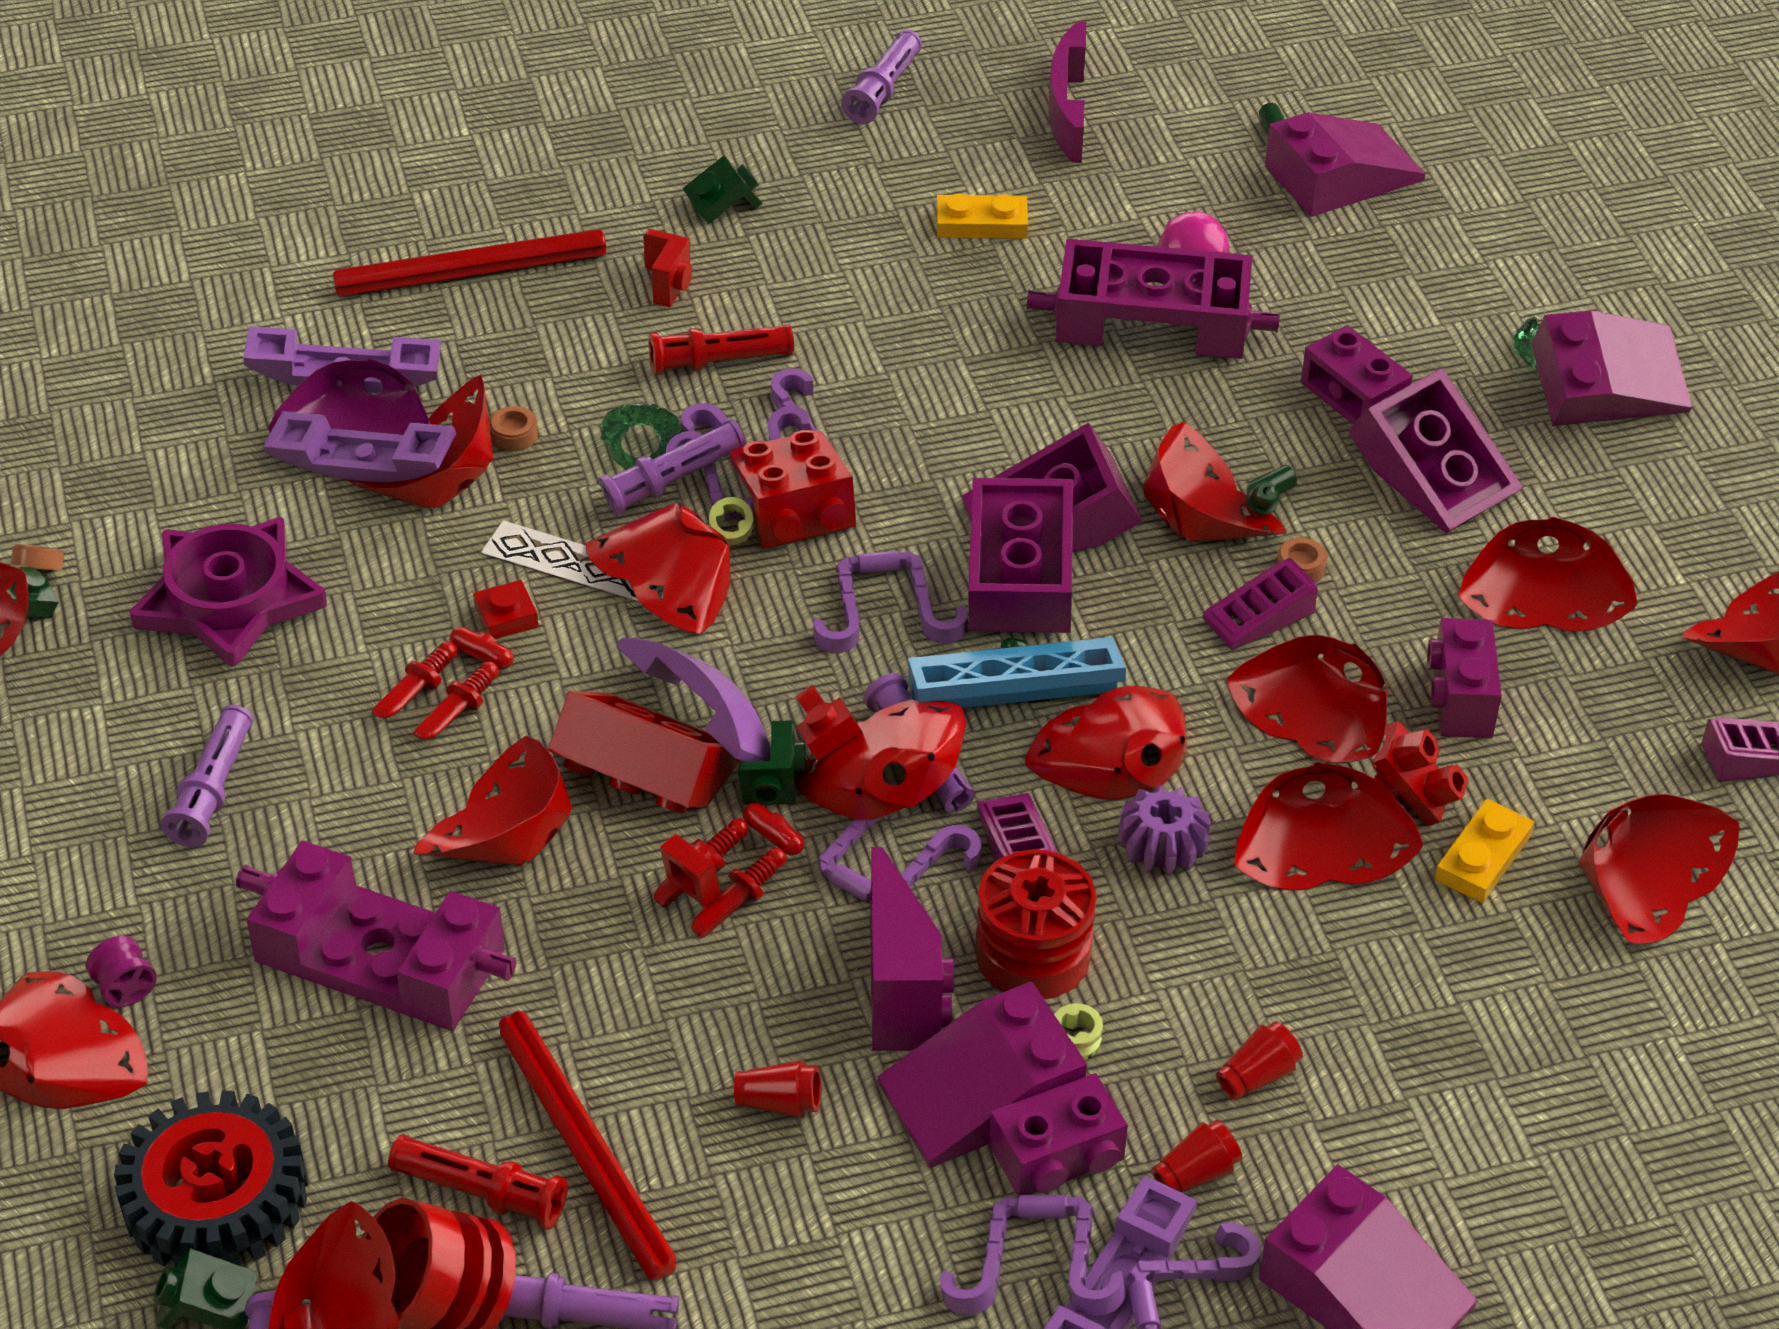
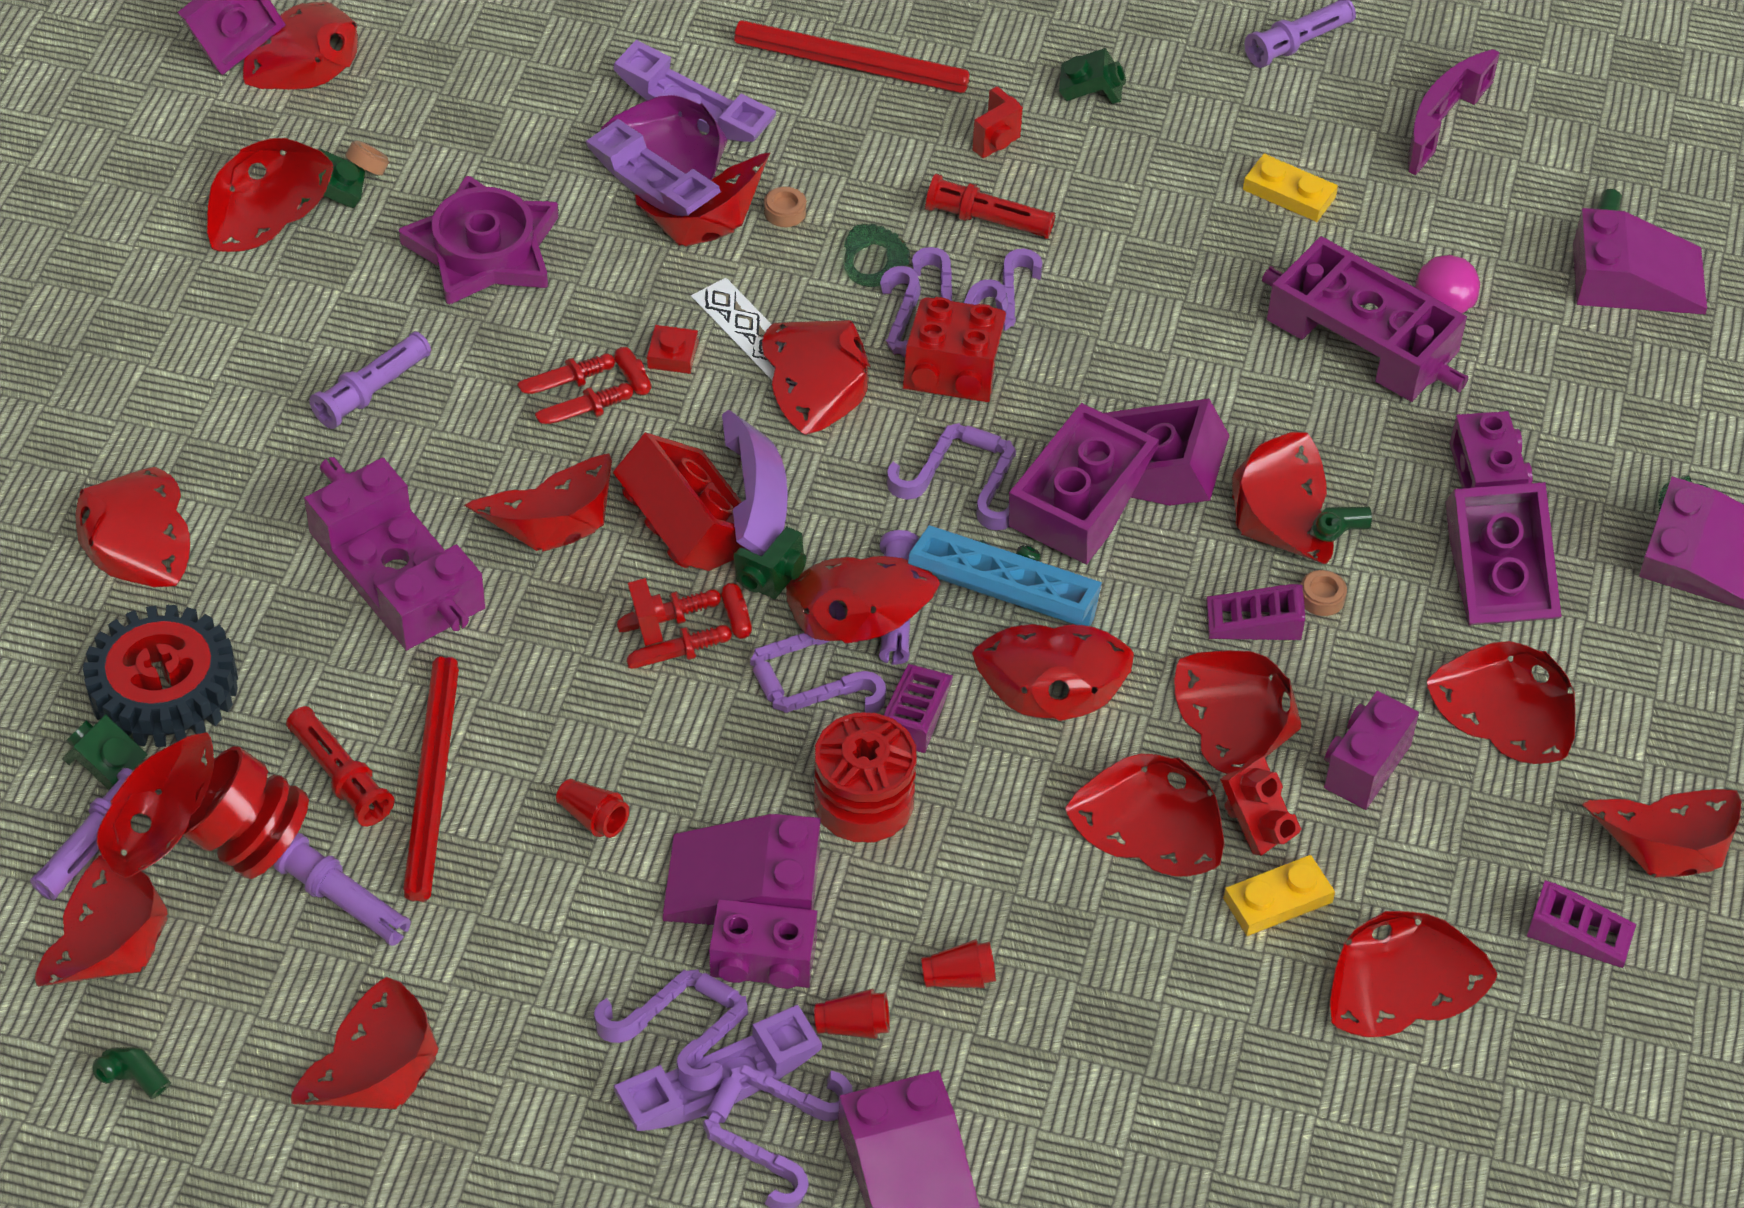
camera: 30 degrees right, 5 degrees up
(121, 971) = (207, 495): magenta wheel -> none
(652, 475) = (853, 291): medium lavender pin -> none
(744, 526) = (881, 343): yellowish green bush -> none
(826, 724) = (830, 548): red plate -> none
(907, 967) = (732, 757): magenta slope -> none
(1078, 1013) = (839, 886): yellowish green bush -> none
(1164, 829) = (1029, 753): medium lavender gear -> none

